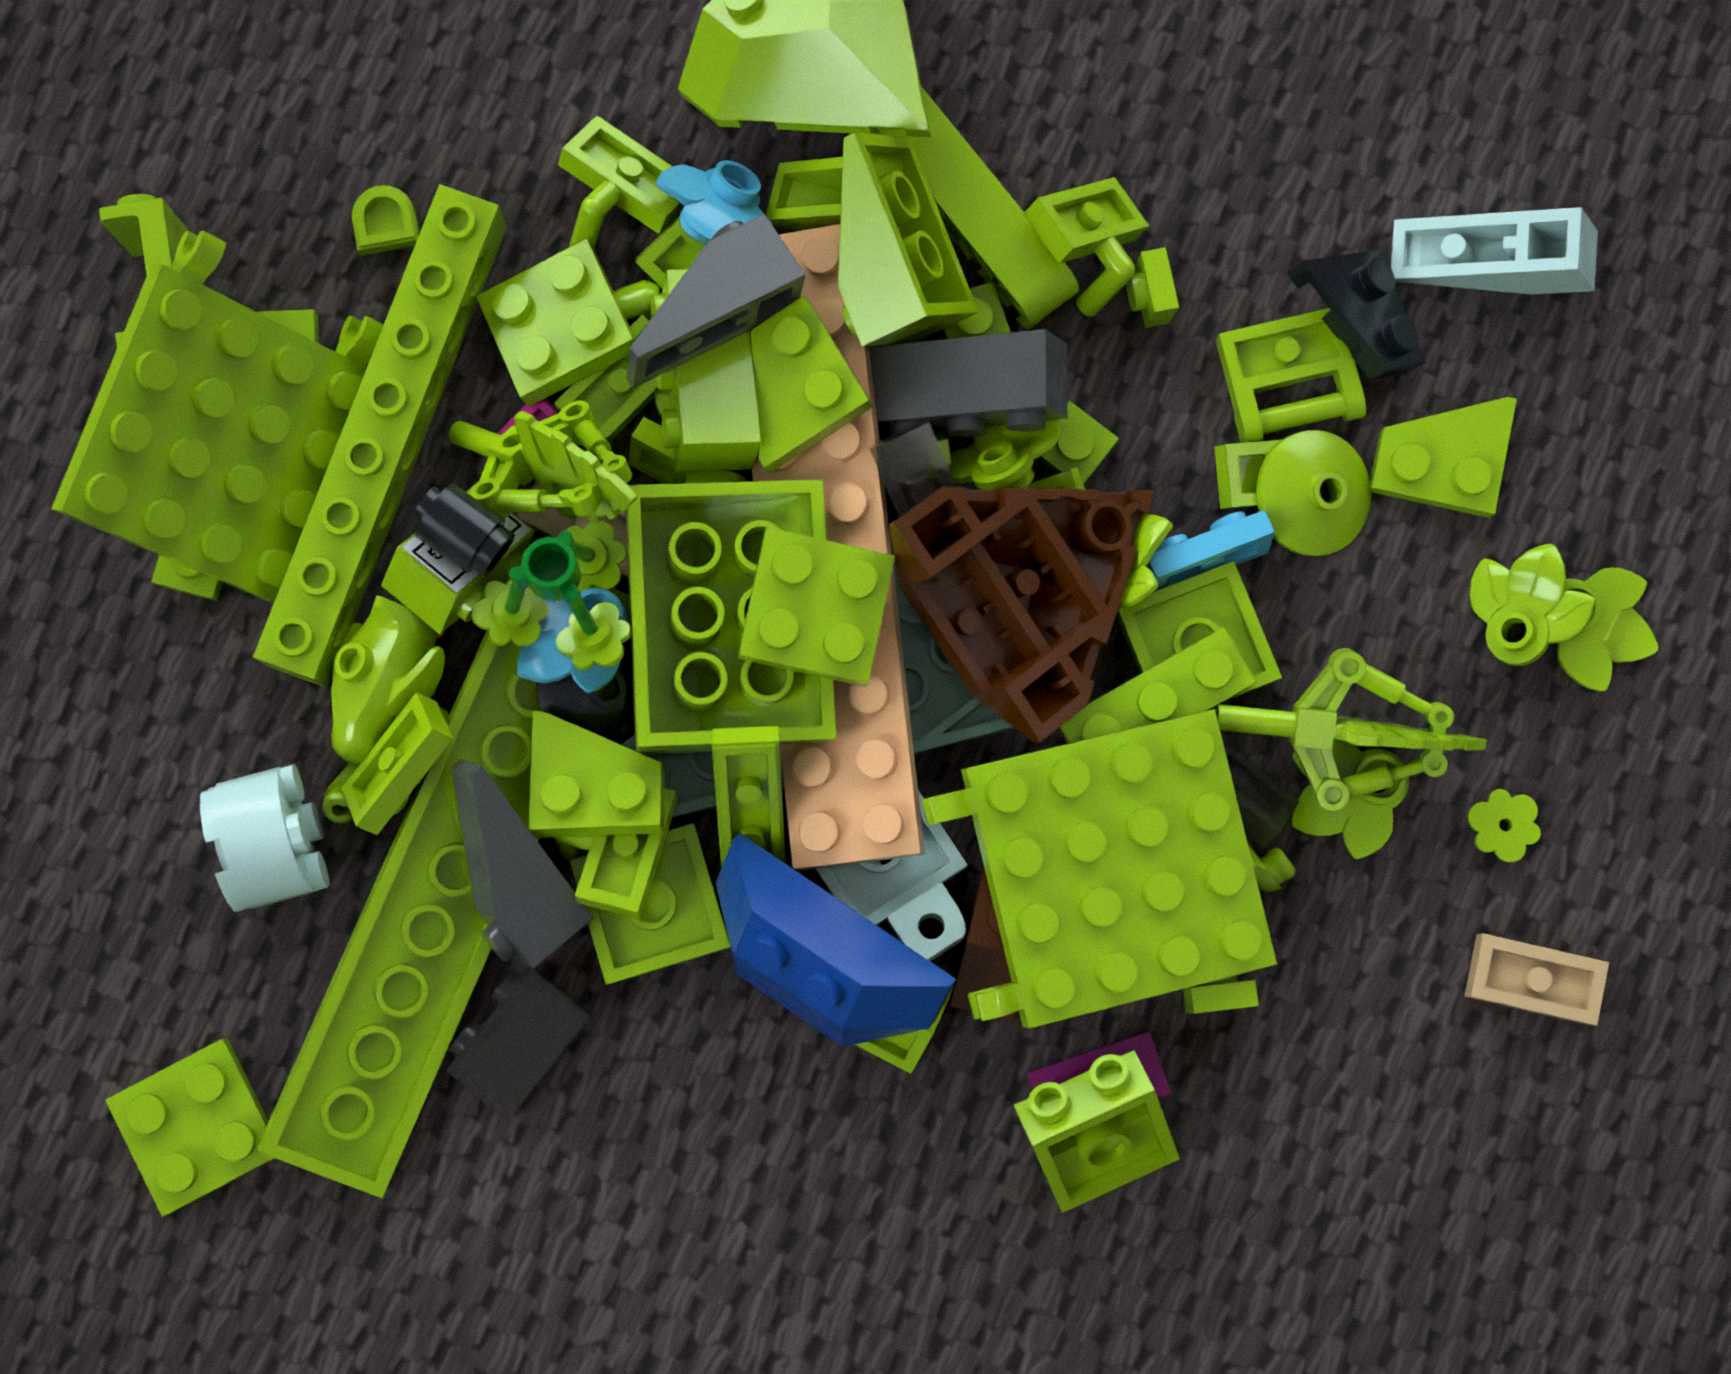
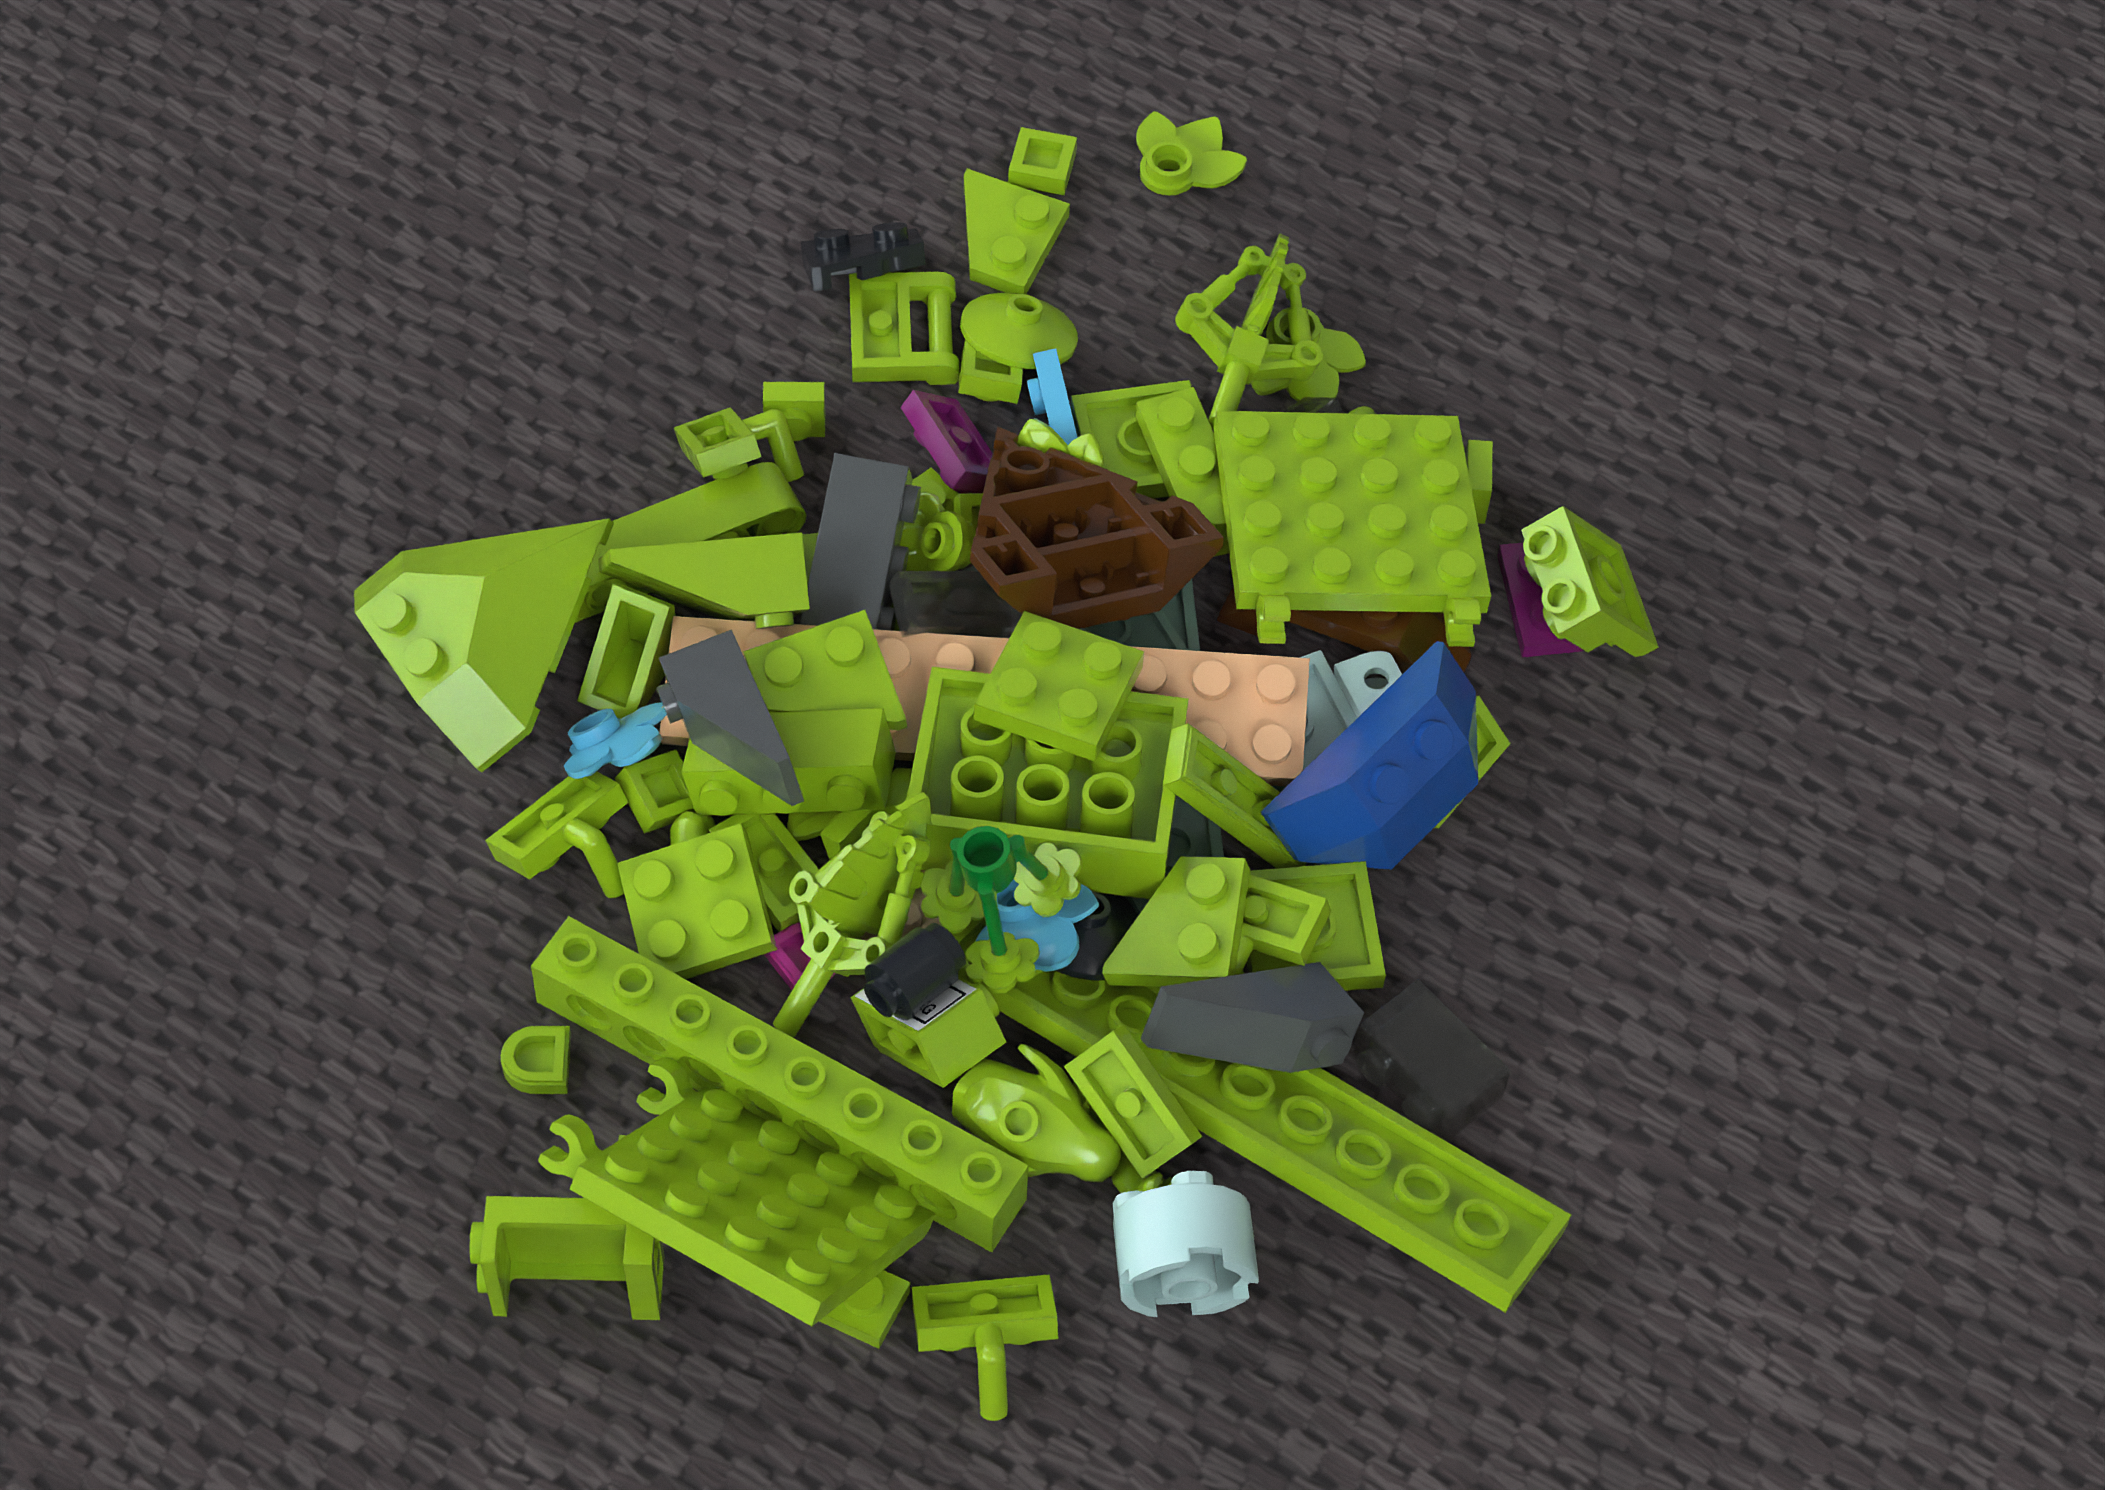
camera: 75 degrees left, 25 degrees down
(184, 670) = (986, 1317): none -> lime plate
(192, 1126) = (1471, 1393): lime plate -> none
(1150, 449) = (951, 440): none -> magenta plate
(1499, 251) = (829, 150): light aqua slope -> none
(1519, 814) = (1353, 253): lime plant -> none
(1529, 595) = (1151, 189): lime plate -> none
(1536, 979) = (1496, 254): tan plate -> none
(1546, 475) = (1042, 161): none -> lime plate

